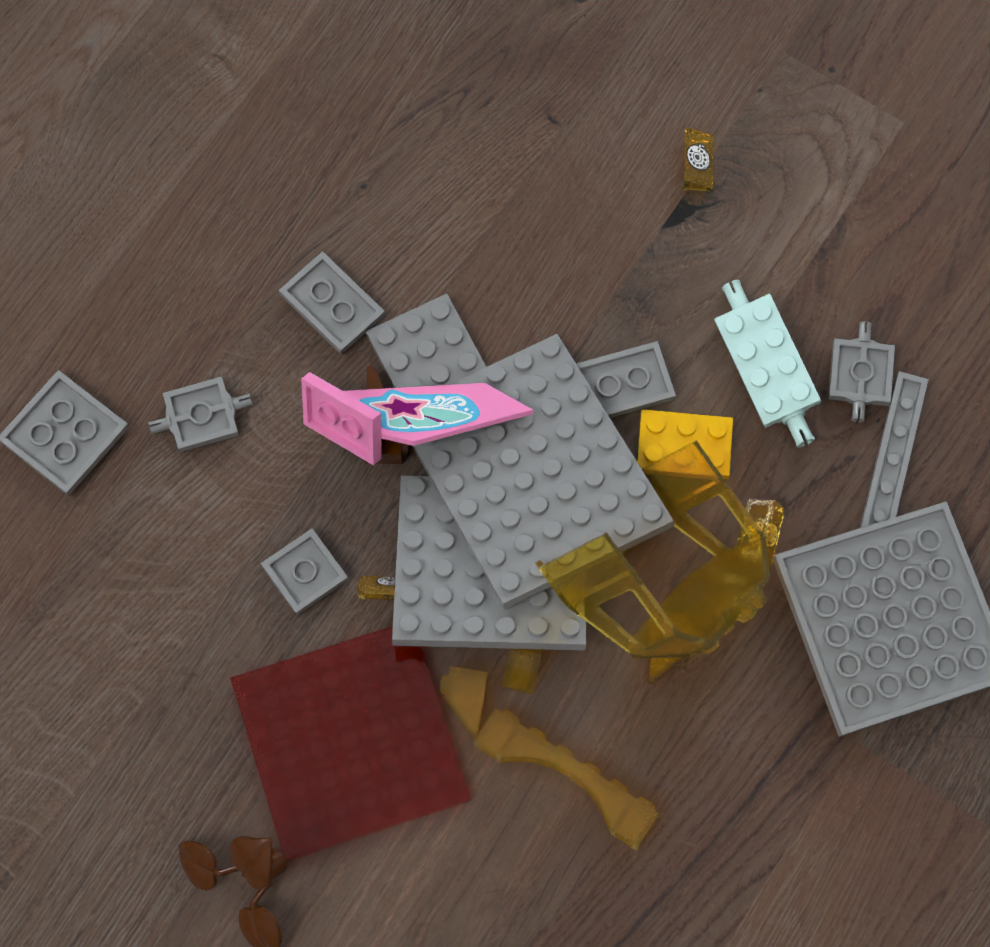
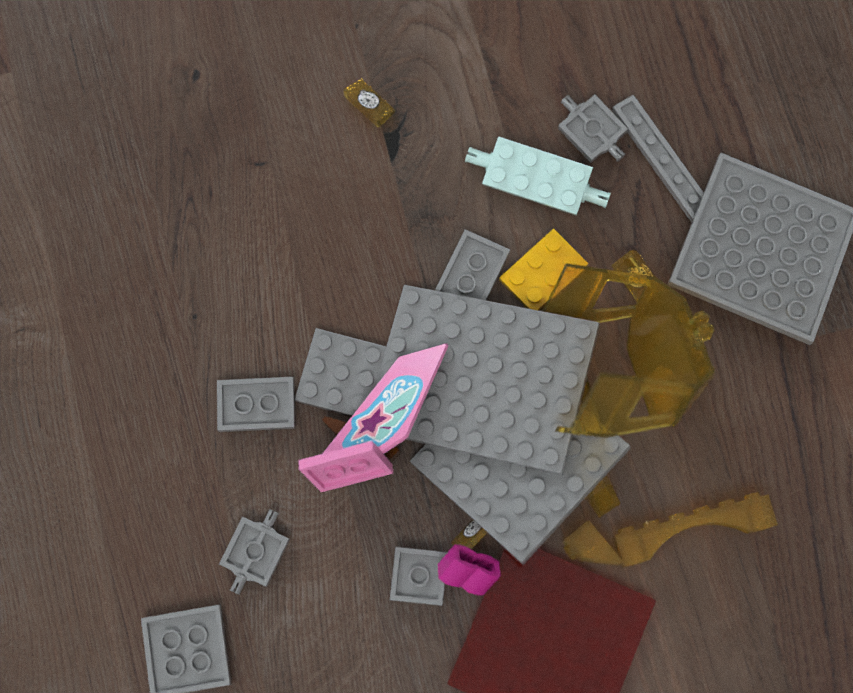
camera: 40 degrees left, 5 degrees up
(346, 605) = (468, 570): none -> dark pink brick

